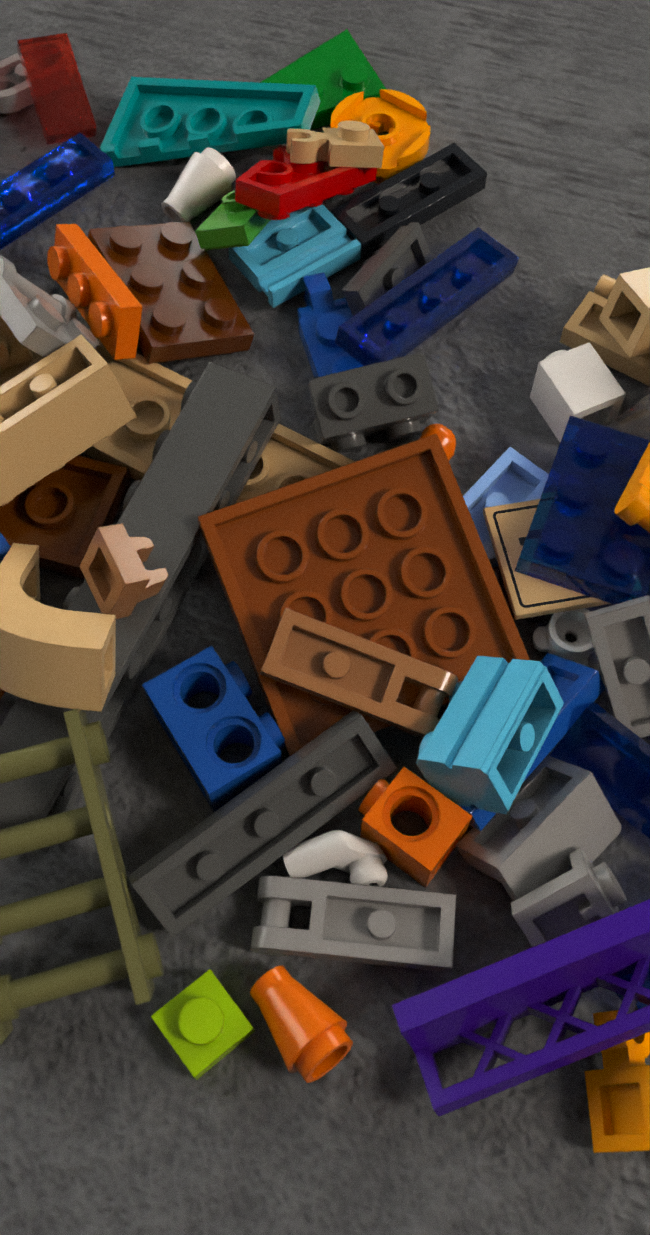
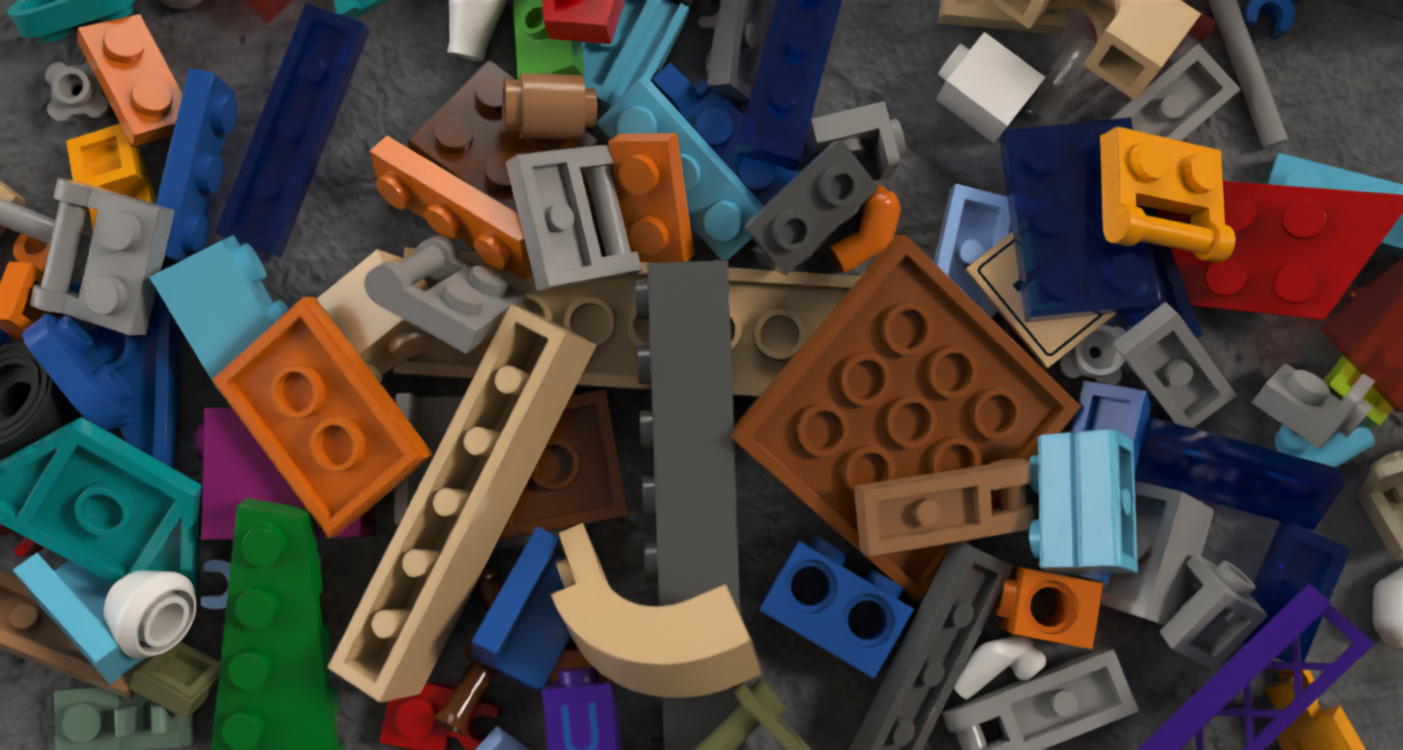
camera: 25 degrees left, 20 degrees up
(117, 572) = (696, 537): medium nougat tile -> none
(161, 311) = (559, 219): none -> light grey plate
(206, 246) = (548, 106): none -> medium nougat brick
(254, 331) = (652, 196): none -> orange plate
(286, 338) = (715, 196): none -> medium azure plate
(453, 380) = (861, 128): none -> light grey bracket

